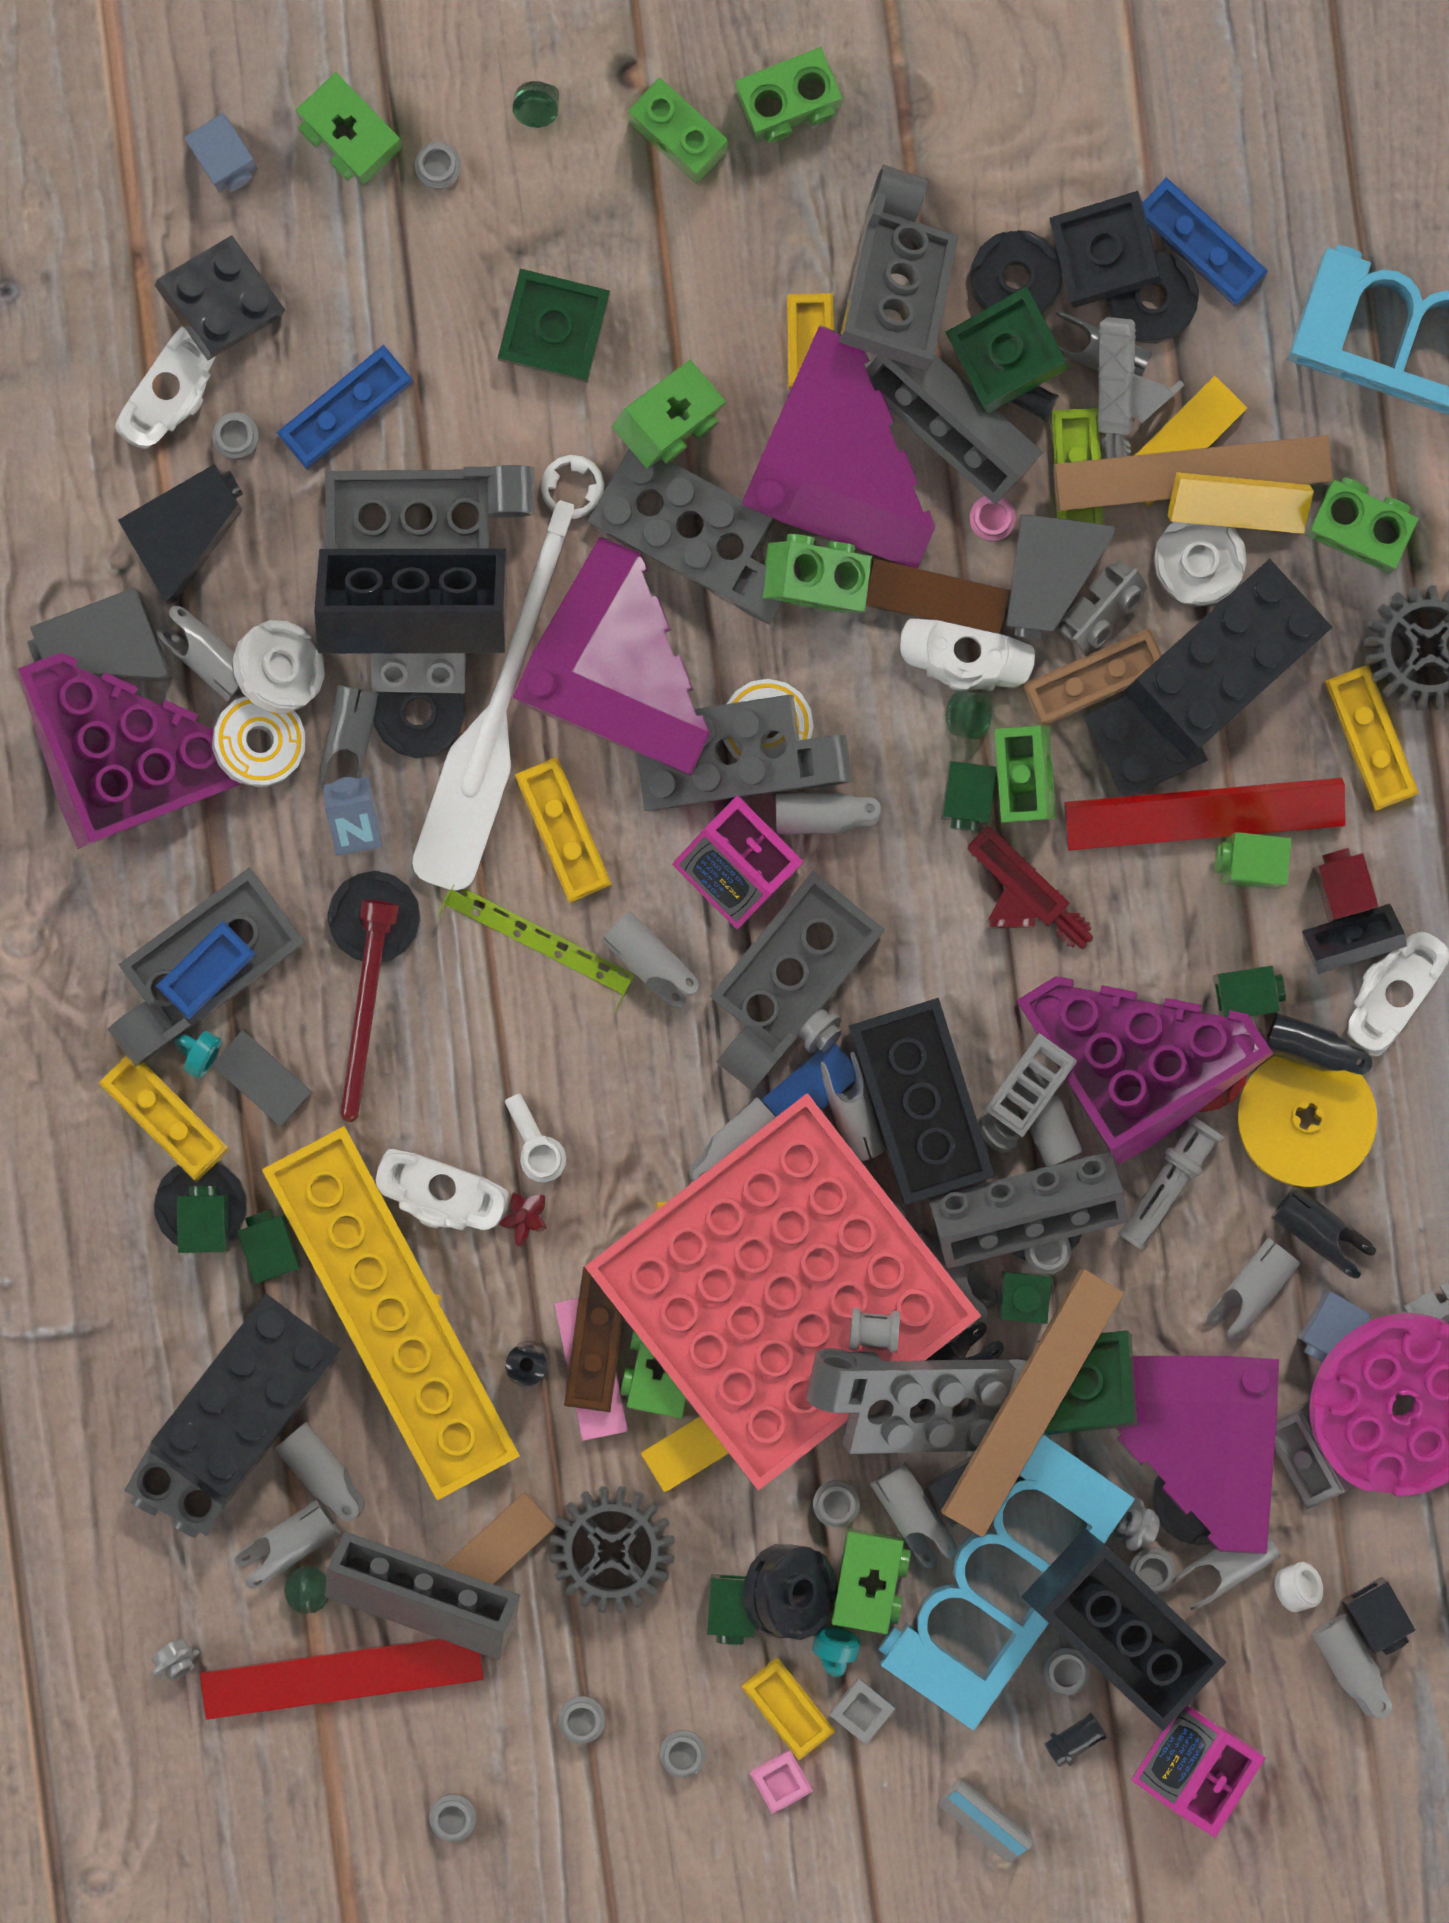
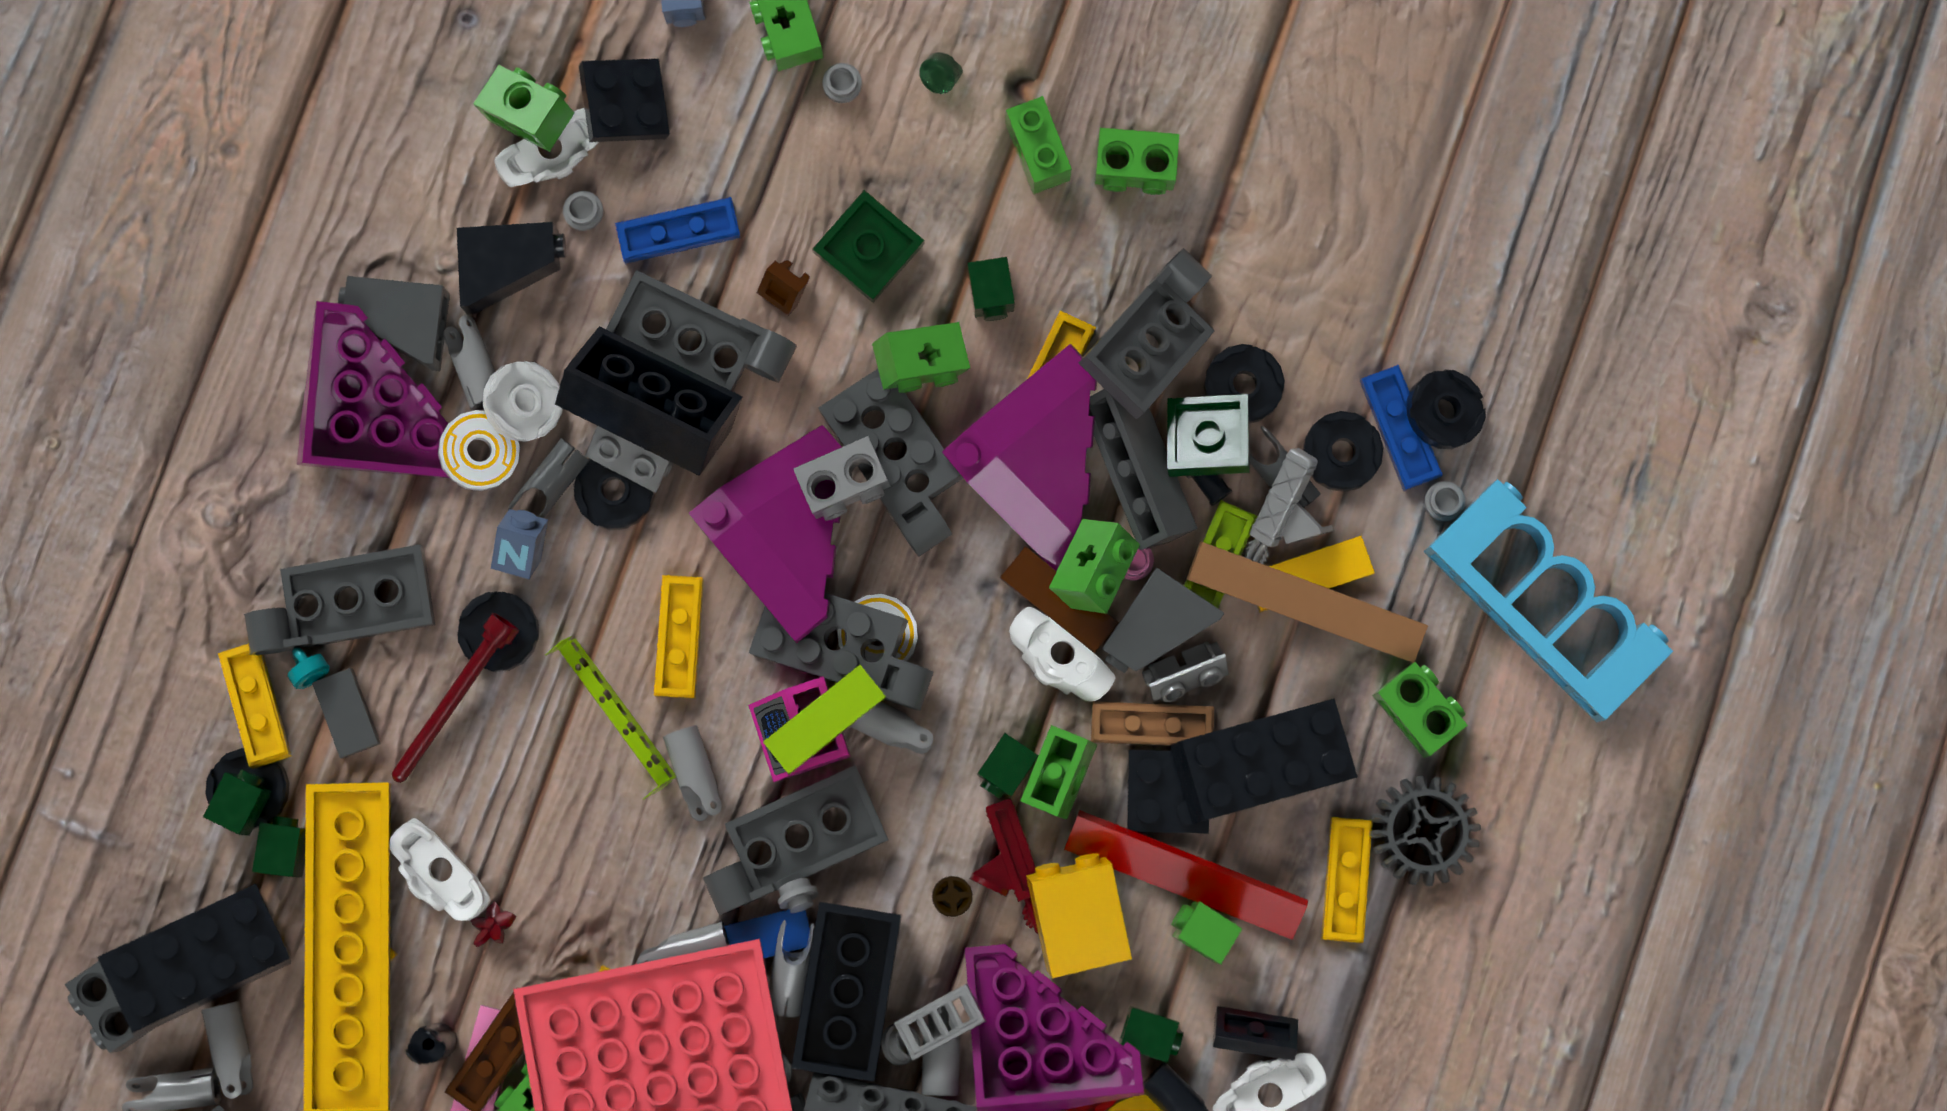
camera: 25 degrees right, 5 degrees down
(145, 364) = (539, 121): none -> bright green brick
(206, 970) = (343, 607): blue tile -> none
(480, 758) = (643, 549): white piece -> none
(486, 412) = (782, 287): none -> reddish brown tile
(541, 1156) = (531, 884): white plate -> none
(644, 575) = (838, 467): none -> light grey brick
(704, 307) = (991, 288): none -> dark green brick
(762, 838) = (824, 719): none -> lime tile
(816, 580) = (970, 541): bright green brick -> none
(957, 543) = (1094, 566): none -> bright green brick
(968, 714) = (1038, 704): clear green tile -> none
(984, 951) = (952, 896): none -> dark brown wheel
(1105, 249) = (1323, 396): black plate -> none
(1117, 909) = (1078, 915): none -> yellow brick
(1199, 562) = (1279, 673): white tile -> none
(1224, 220) = (1431, 424): none -> black tile
(1240, 503) = (1332, 644): yellow tile -> none
(1283, 297) = (1444, 501): none -> light grey plate
(1345, 884) = (1269, 986): dark red brick -> none

